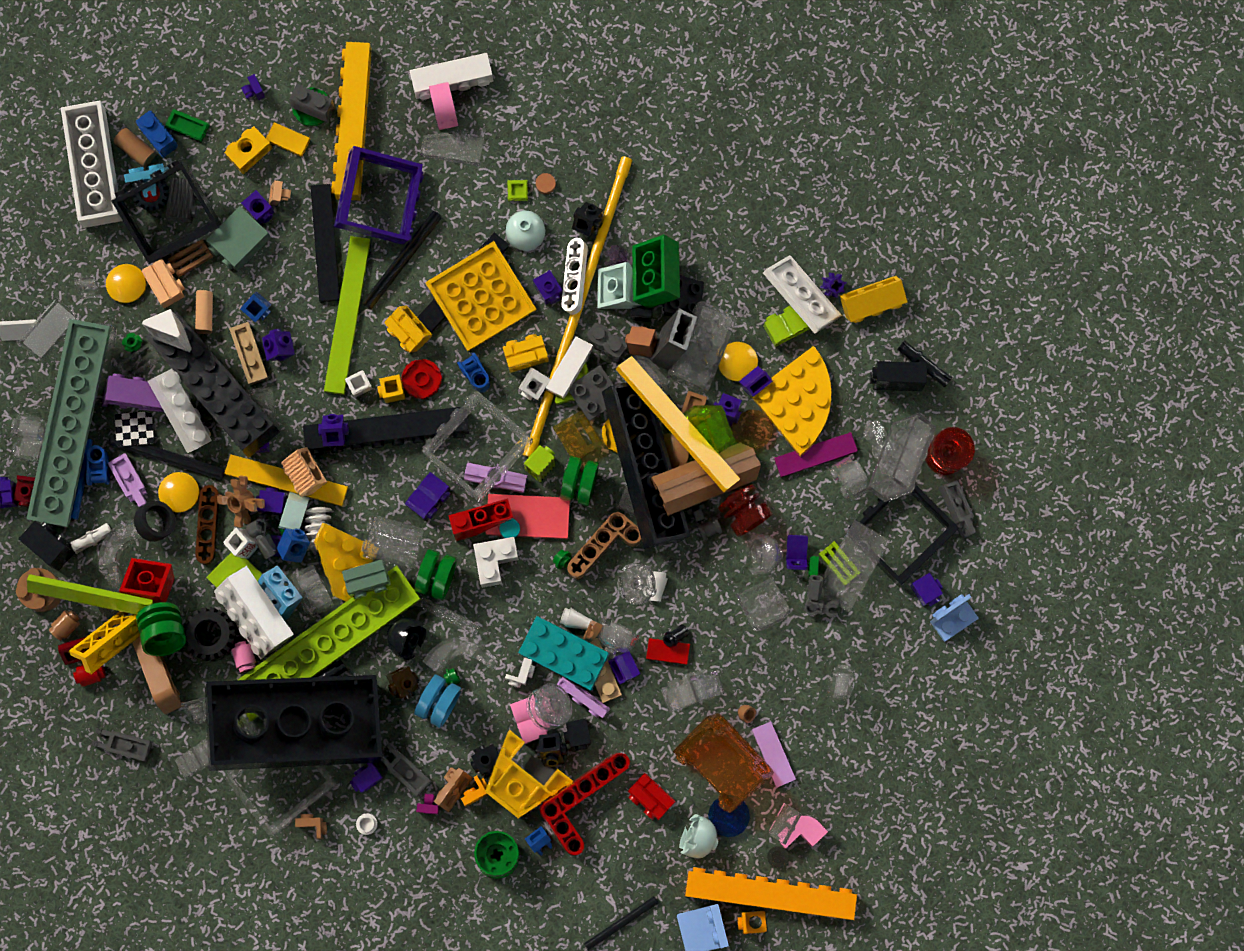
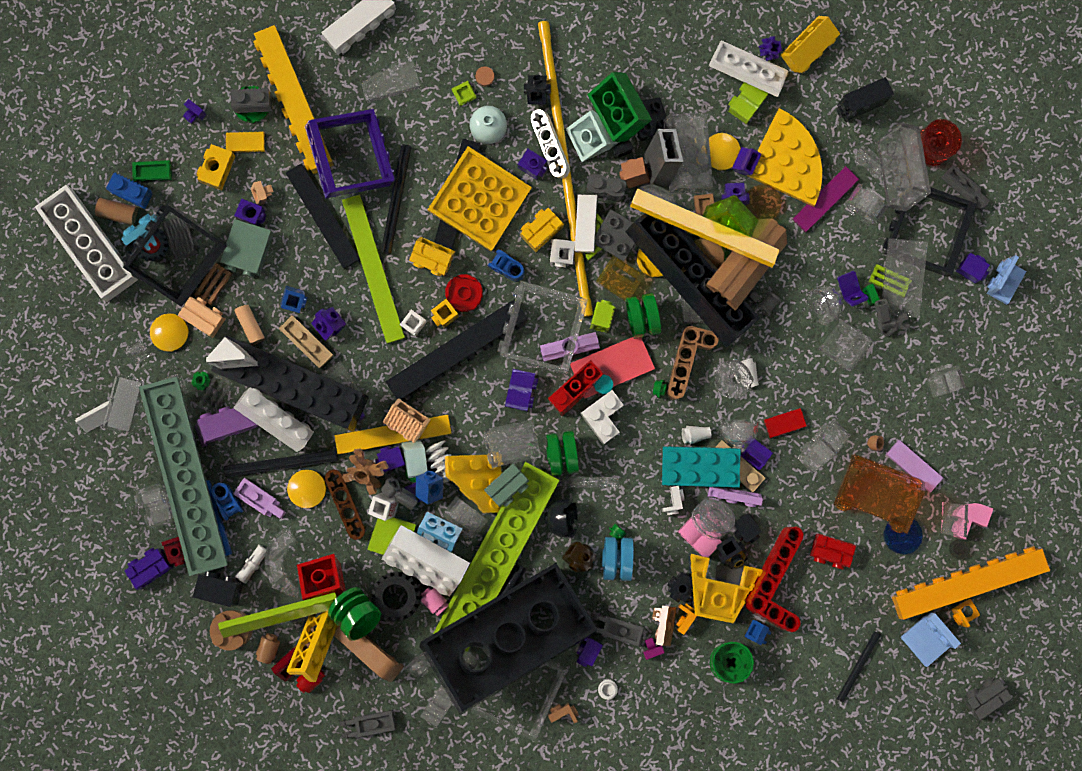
camera: 30 degrees left, 5 degrees up
(134, 428) = (240, 453): sticker -> none
(166, 515) = (304, 512): black tyre -> none
(333, 430) = (415, 373): dark purple brick -> none
(443, 106) = (366, 49): bright pink brick -> none
(456, 647) = (603, 511): clear arch -> none
(592, 631) = (716, 436): medium nougat tile -> none
(617, 255) = (577, 108): clear purple tile -> none
(672, 637) = (784, 411): black pin -> none
(699, 838) = (889, 566): light aqua cylinder -> none
(745, 510) = (793, 274): clear red wheel -> none
(932, 369) = (870, 77): black pin -> none

